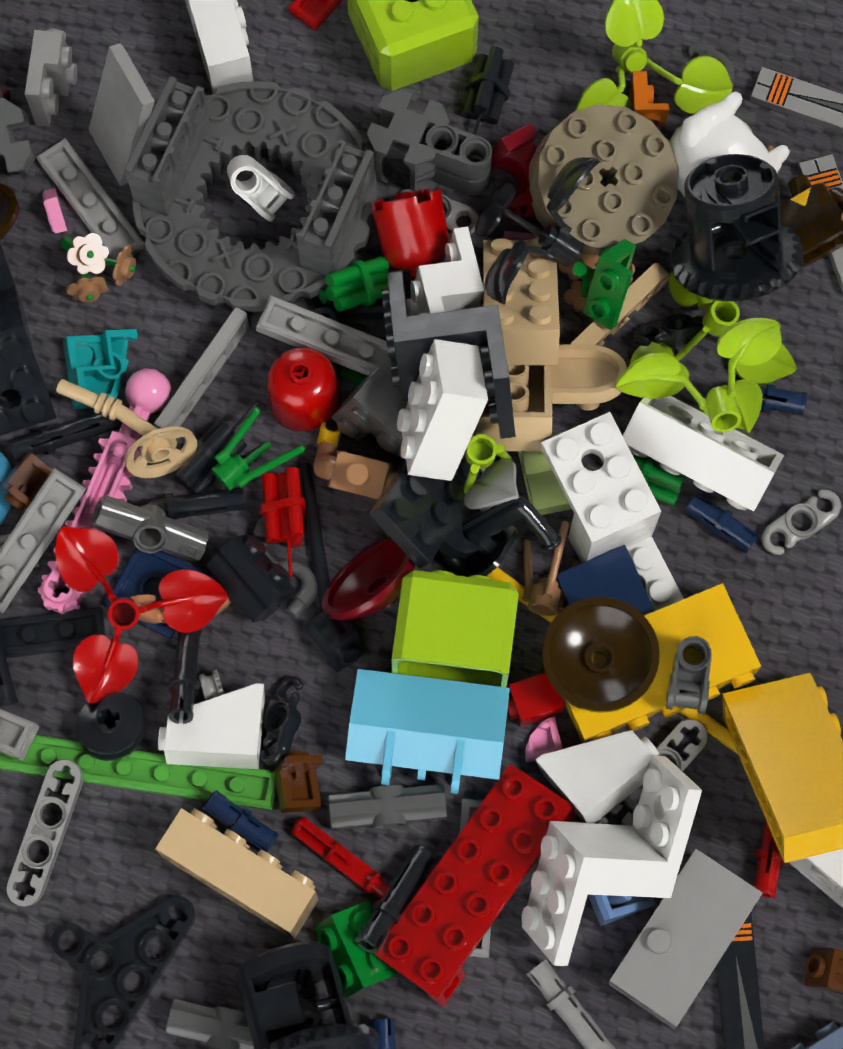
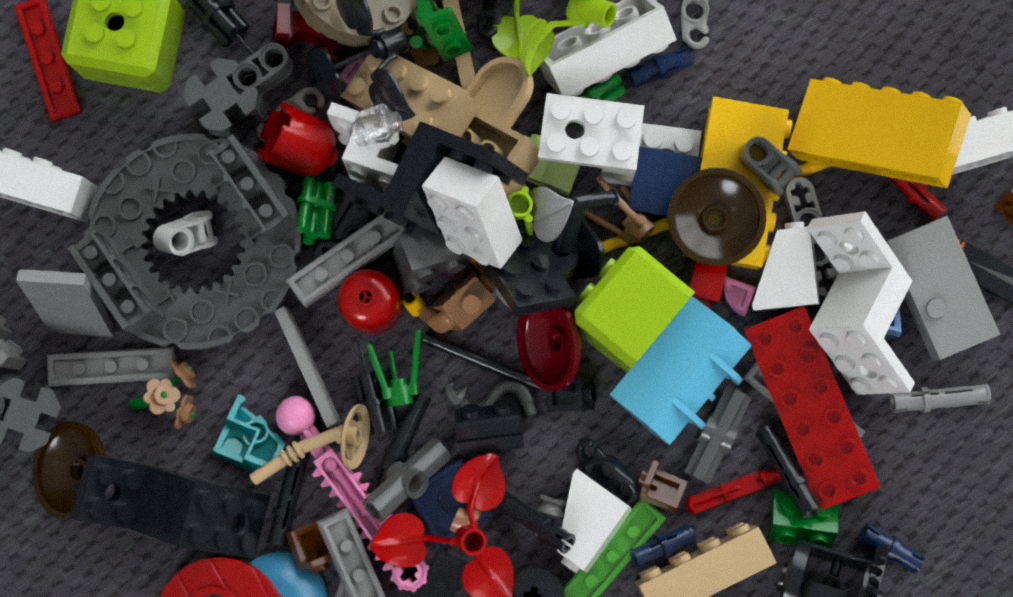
camera: 50 degrees left, 10 degrees up
(54, 210) = (101, 399): bright pink tile -> none
(283, 509) = (452, 372): red piece -> none
(467, 276) = (377, 127): none -> clear head

